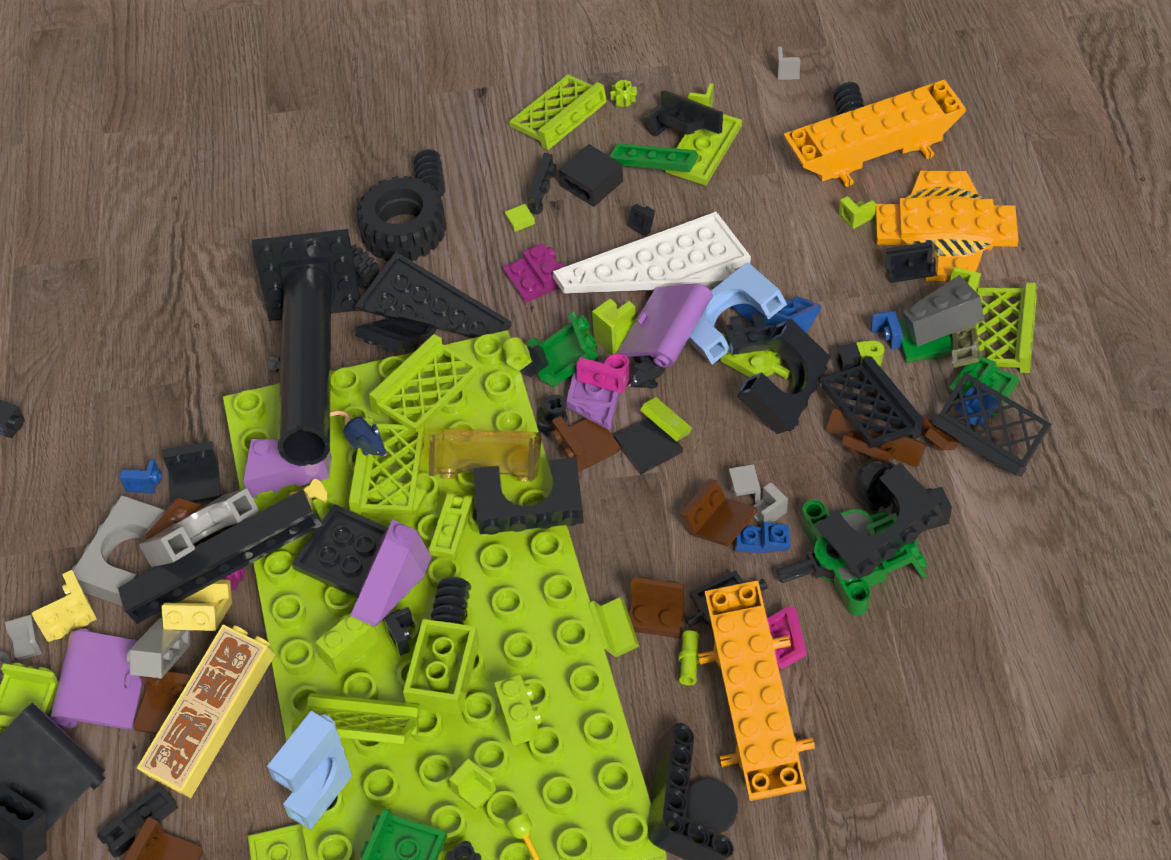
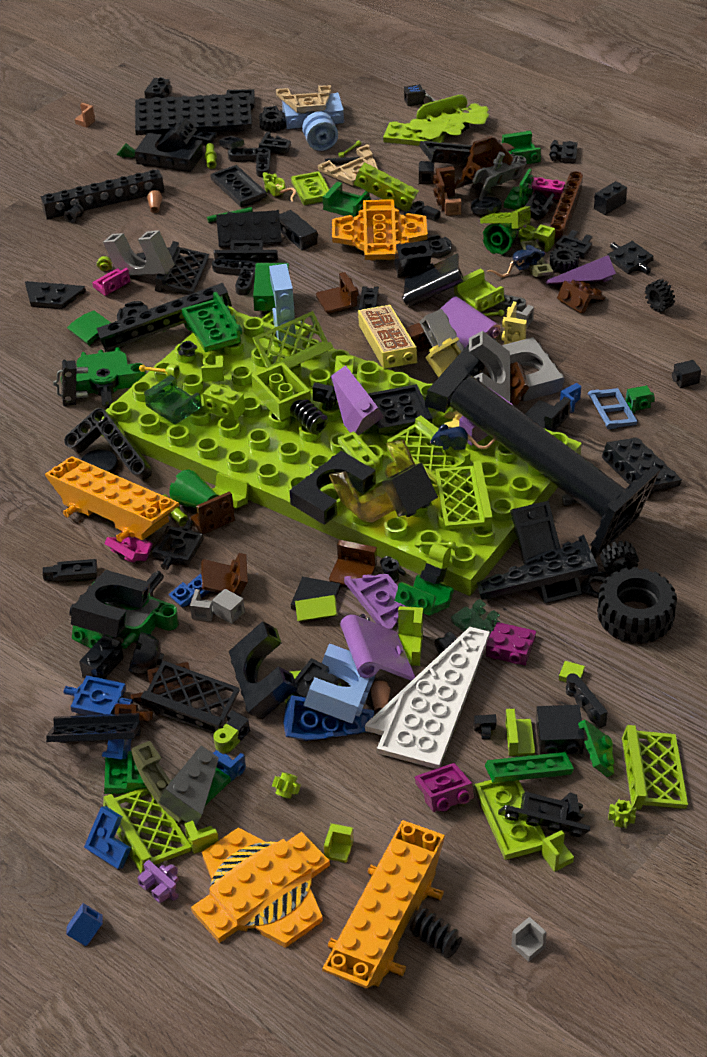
camera: 135 degrees right, 10 degrees down
(88, 424) = (639, 398): none -> green brick
(107, 436) = (594, 394): none -> medium blue window
(198, 353) = (632, 457): none -> black bracket
(429, 169) = (665, 651): black piece -> none
(470, 416) = (410, 490): none -> black piece
(517, 381) = (418, 543): none -> lime hinge
(544, 313) = (470, 618): none -> clear green plate
(567, 768) = (171, 401): none -> clear green panel
(575, 144) = (599, 748): none -> green wing
(589, 303) = (443, 643): none -> black wheel
(610, 375) = (373, 598): dark pink plate -> none
(621, 200) = (519, 735): none -> lime panel
(655, 637) = (190, 489): none -> green cone
(730, 193) = (445, 787): none -> magenta plate
(856, 276) = (286, 785): none -> lime gear
(866, 655) = (71, 570): none -> black hinge
(912, 261) = (255, 823): black hinge -> none
(956, 475) = (97, 696): none -> blue plate
(1025, 270) = (163, 878): none -> medium lavender hips
(1048, 328) = (103, 841): none -> blue plate
(1118, 279) = (84, 924): none -> blue panel

